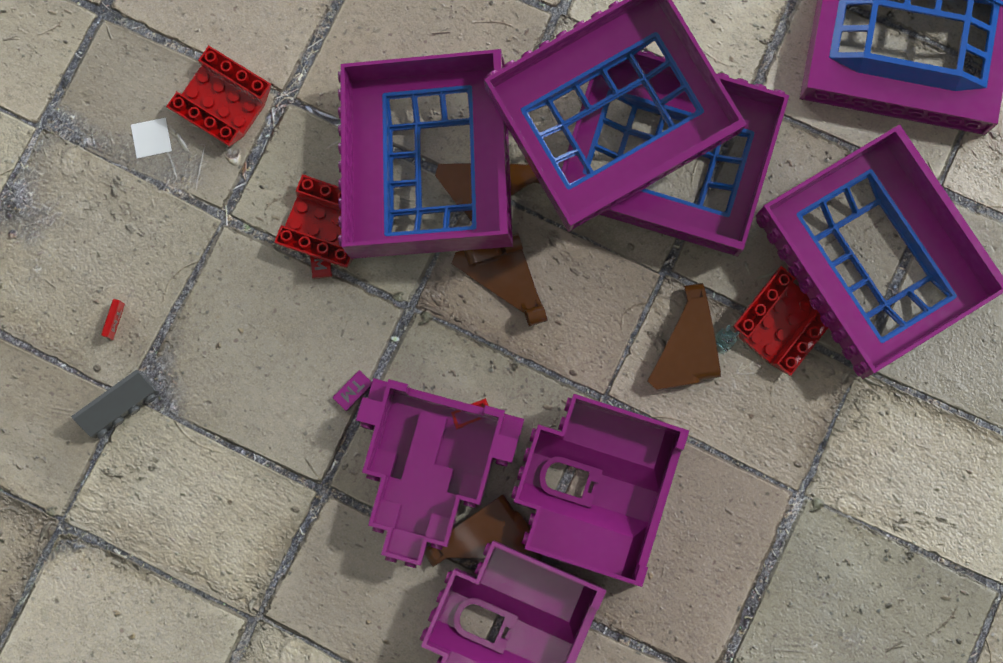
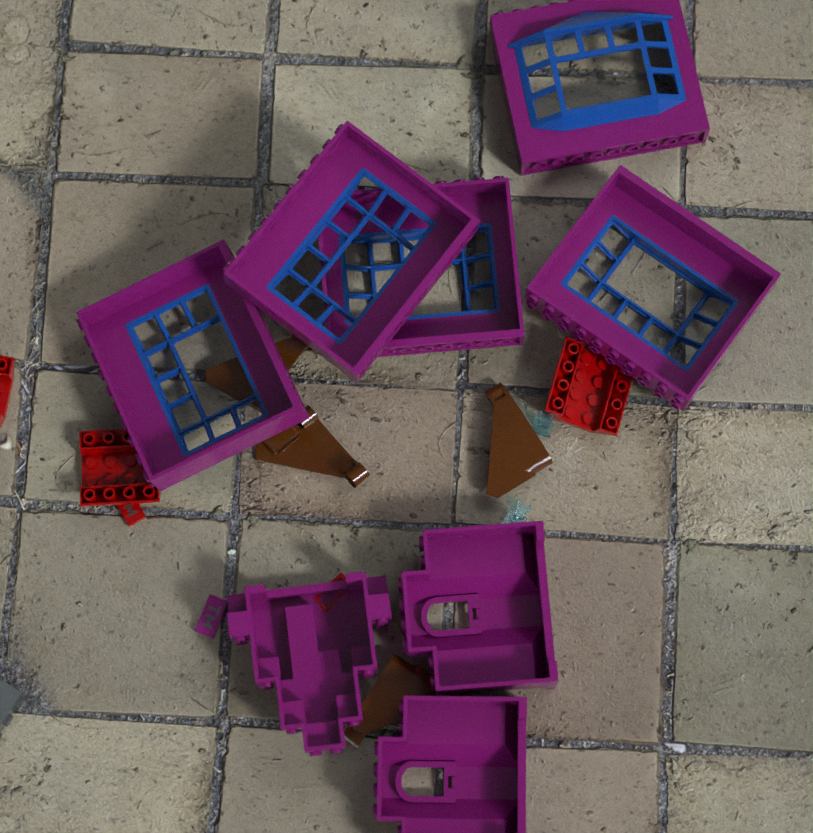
camera: 25 degrees left, 5 degrees down
(665, 413) = (517, 516): none -> clear light blue plate

